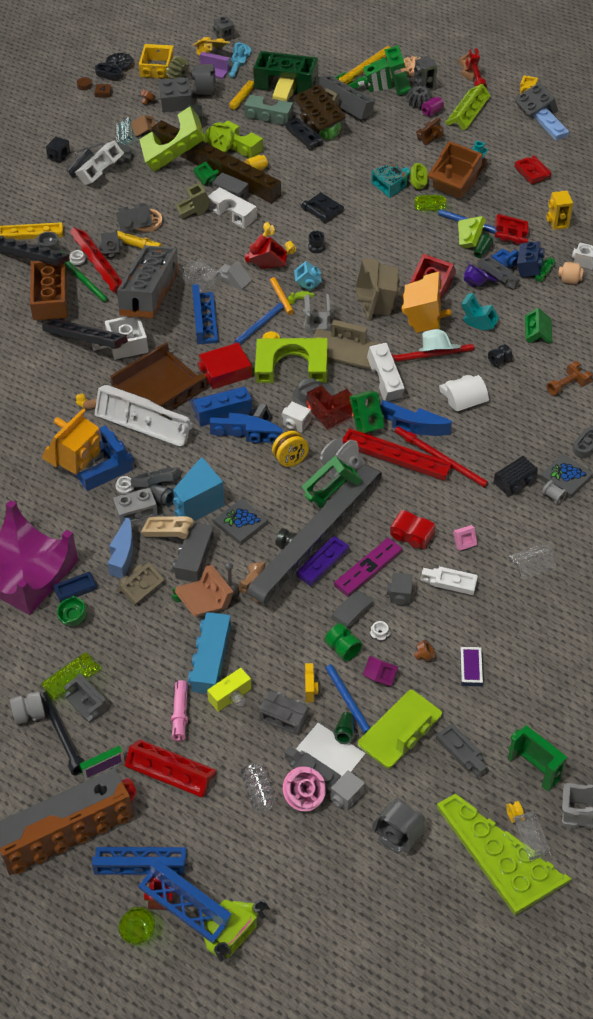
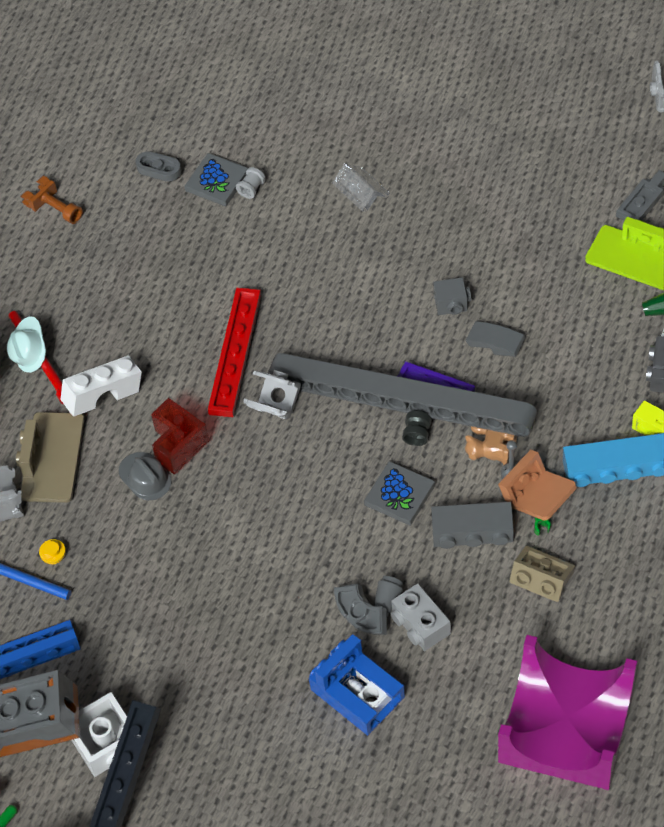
camera: 100 degrees left, 5 degrees up
(72, 611) = (619, 628): green hair -> none
(74, 444) = (360, 703): light orange piece -> none
(75, 587) = (572, 648): dark blue tile -> none
(85, 403) = (244, 751): arm -> none
(121, 550) = (495, 607): medium blue slope -> none
(123, 485) = (383, 640): white plate -> none
(141, 415) = (257, 659): white piece -> none
(160, 379) = (182, 667): reddish brown panel -> none
(167, 527) = (448, 561): tan plate -> none
(198, 492) = (381, 540): dark azure slope -> none
(221, 404) = (199, 574): blue slope -> none
(225, 366) = (126, 589): red brick -> none
(252, 427) = (238, 525): blue slope -> none
(261, 412) = (213, 517): black tile -> none
(272, 350) = (91, 537): lime arch -> none
(290, 448) = (269, 459): yellow head -> none
(296, 417) = (203, 475): white brick -> none
(311, 687) = (620, 351): yellow plate -> none
(344, 642) = (551, 331): green wheel -> none
(345, 472) = (312, 368): green panel -> none
(347, 698) = (619, 316): blue bar -> none
(362, 412) = (182, 386): green brick -> none
(368, 567) = (425, 341): magenta tile -> none
(380, 626) = (516, 300): white plate -> none
(380, 670) = (572, 291): magenta panel -> none
(412, 438) = (201, 341): red bar -> none
(412, 529) = (356, 305): red brick -> none
(419, 423) = (172, 344): blue slope -> none
(425, 651) = (530, 256): dark orange tile -> none
(450, 579) = (418, 254): white hinge -> none
(465, 392) = (104, 302): white brick -> none
(465, 537) = (351, 252): bright pink tile -> none
(471, 666) = (530, 214): tile -> none
(500, 355) = (25, 275): black wheel -> none
(516, 476) = (237, 222): black brick -> none
(539, 754) = (638, 113): green panel -> none

